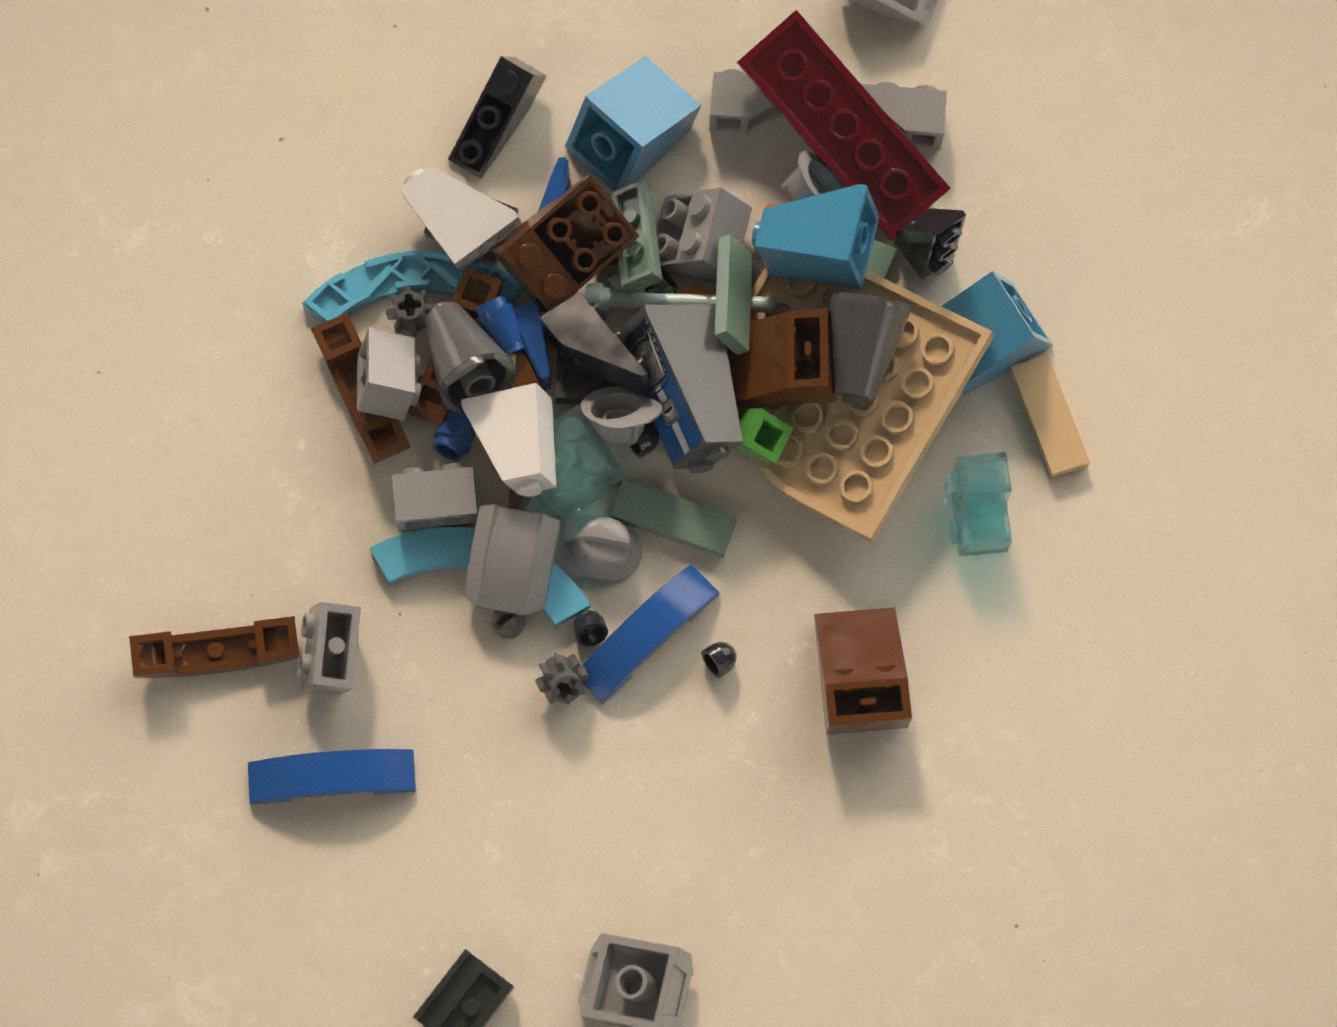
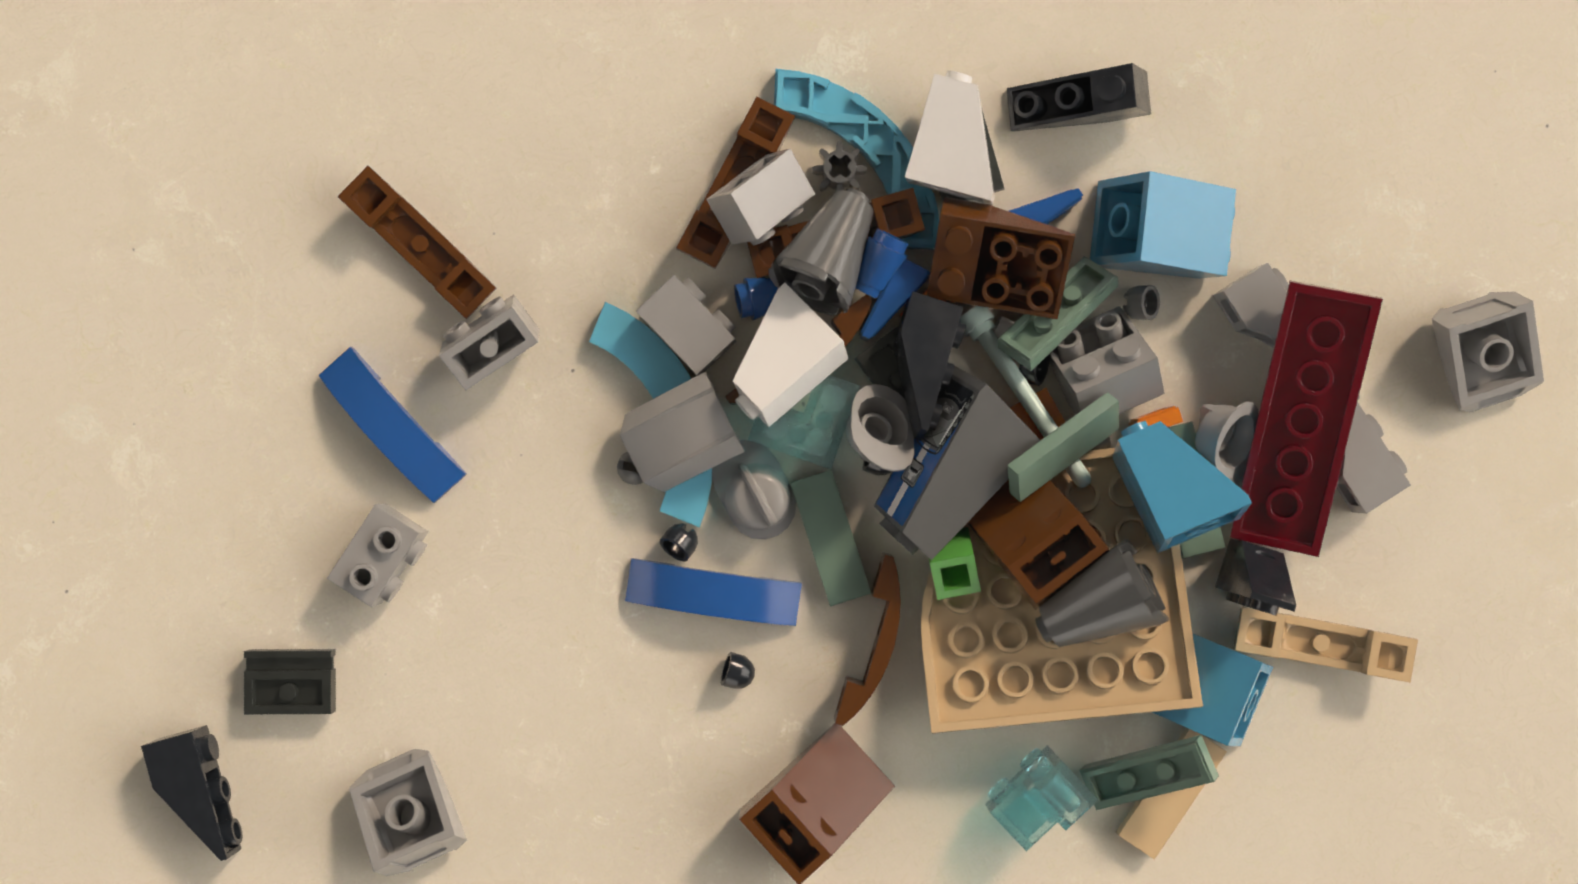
camera: 55 degrees right, 15 degrees up
(422, 857) = (379, 555): none -> light grey brick
(562, 678) = (615, 554): dark grey gear -> none
(675, 177) = (1142, 302): none -> dark grey hinge
(742, 502) = (855, 691): none -> reddish brown slope
(1020, 409) = (1150, 772): none -> sand green tile
(1021, 229) = (1326, 644): none -> tan slope

